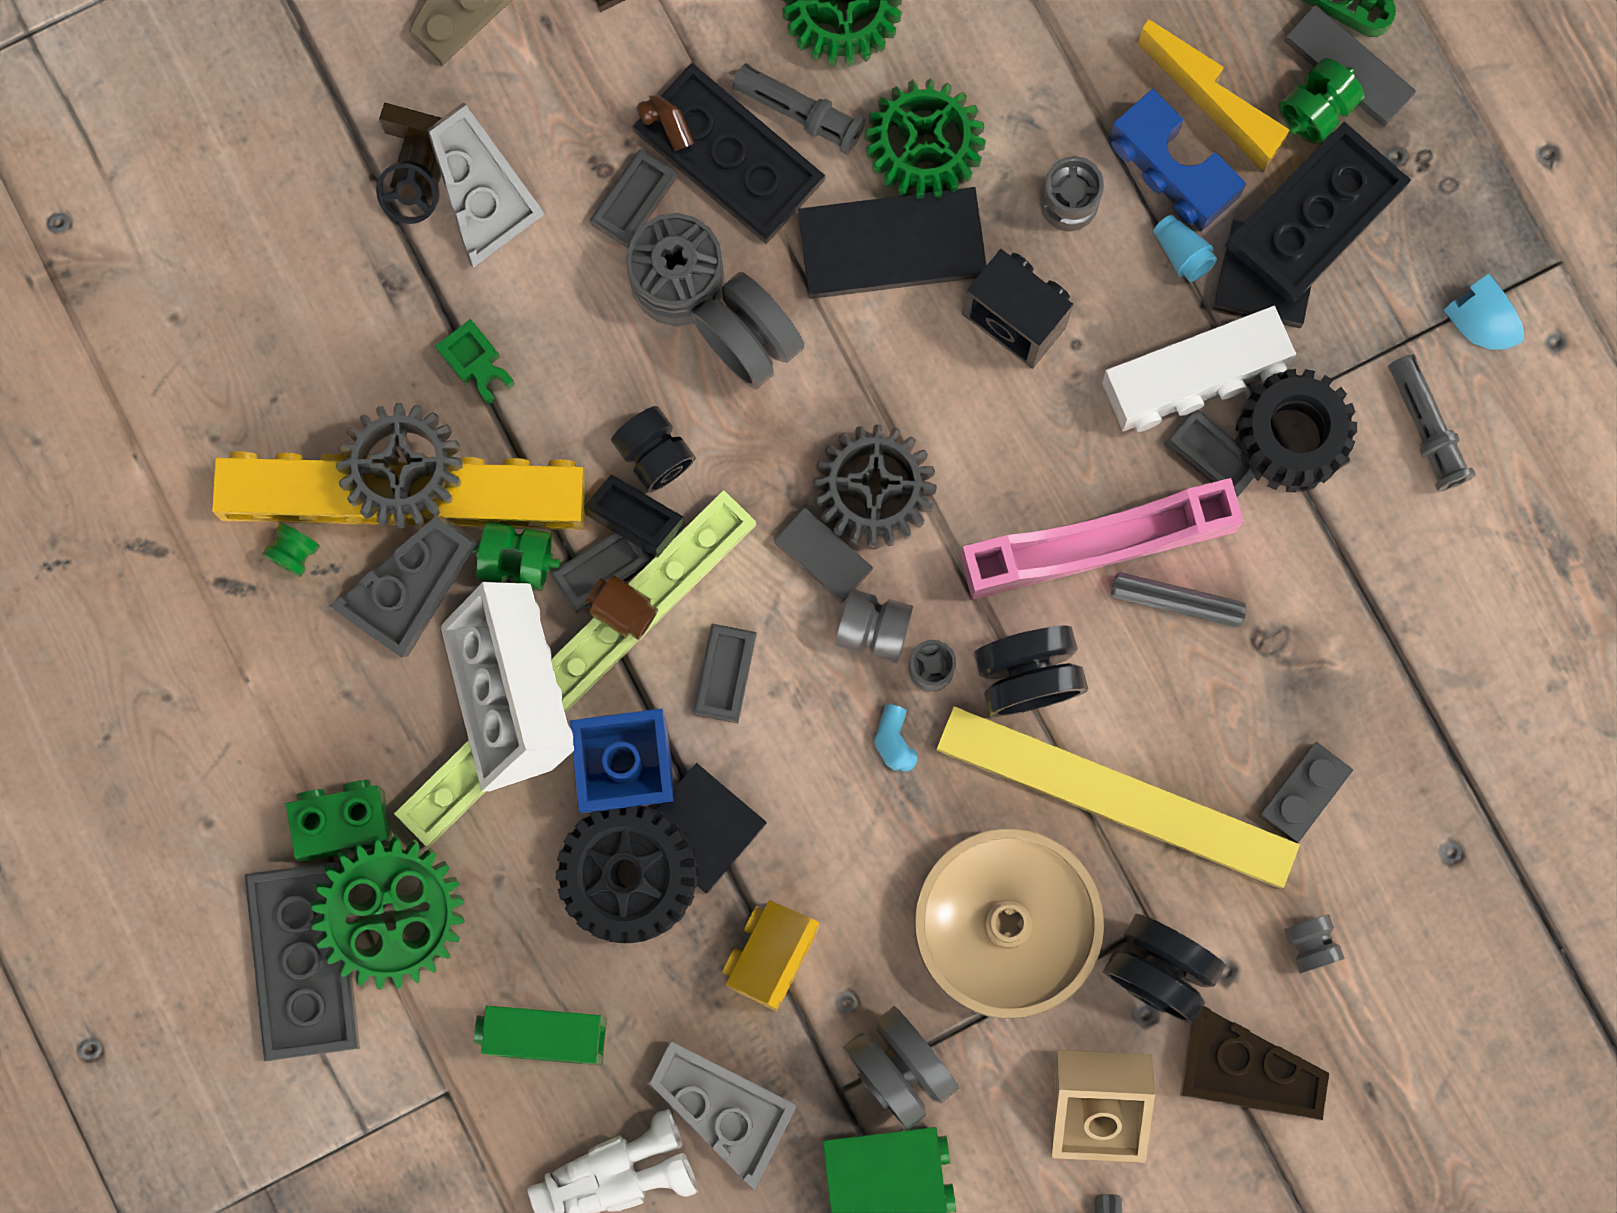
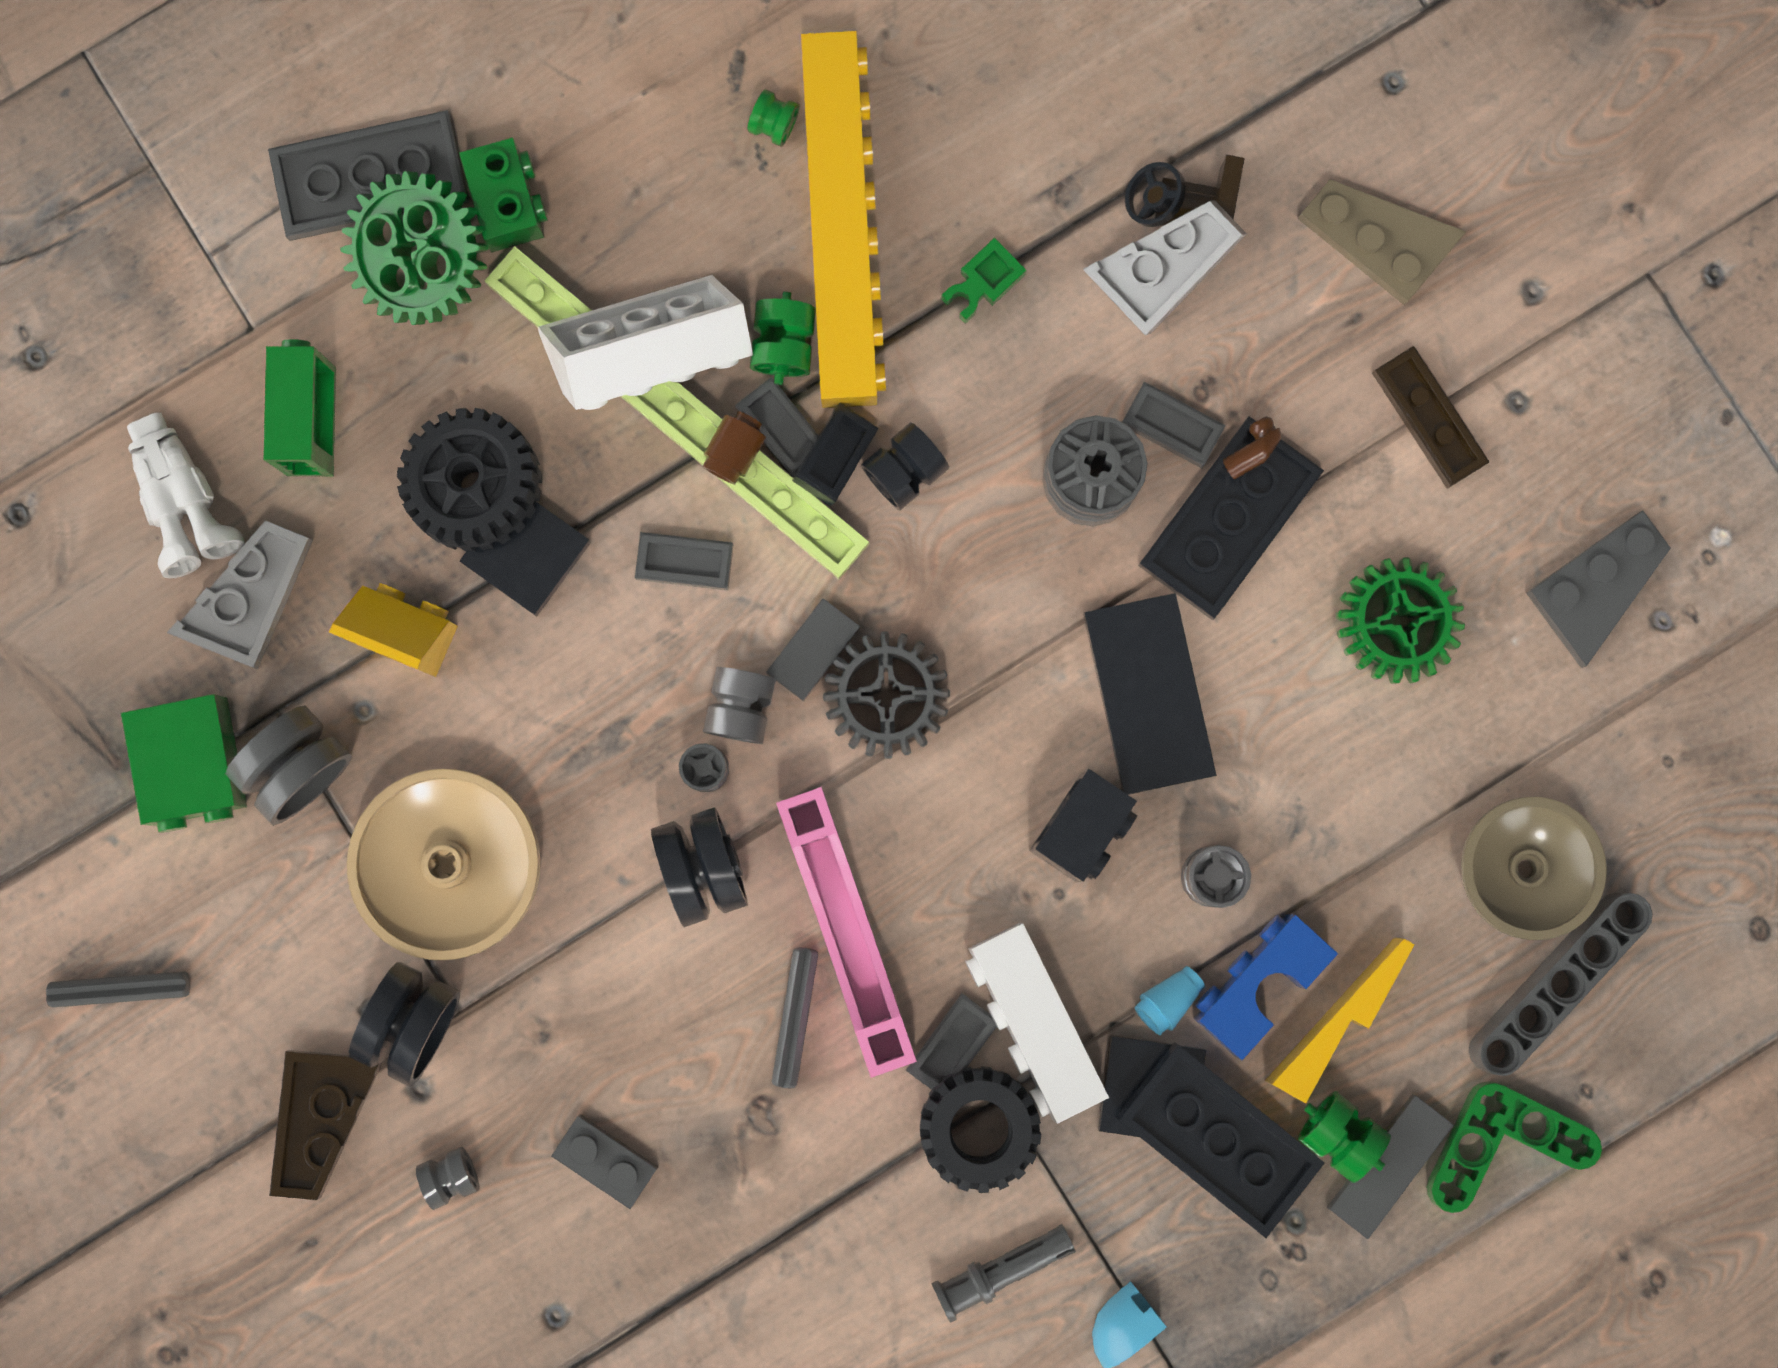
camera: 85 degrees right, 5 degrees up
(379, 464) = (875, 205): dark grey gear -> none
(408, 587) = (742, 236): dark grey wing -> none
(622, 760) = (575, 463): blue slope -> none
(748, 330) = (1039, 554): dark grey wheel -> none
(816, 116) = (1277, 604): dark grey pin -> none
(890, 742) = (624, 732): medium azure arm -> none
(900, 113) = (1280, 728): green gear -> none
(1102, 1106) = (273, 971): tan slope -> none
(1118, 797) = (585, 969): light yellow tile -> none

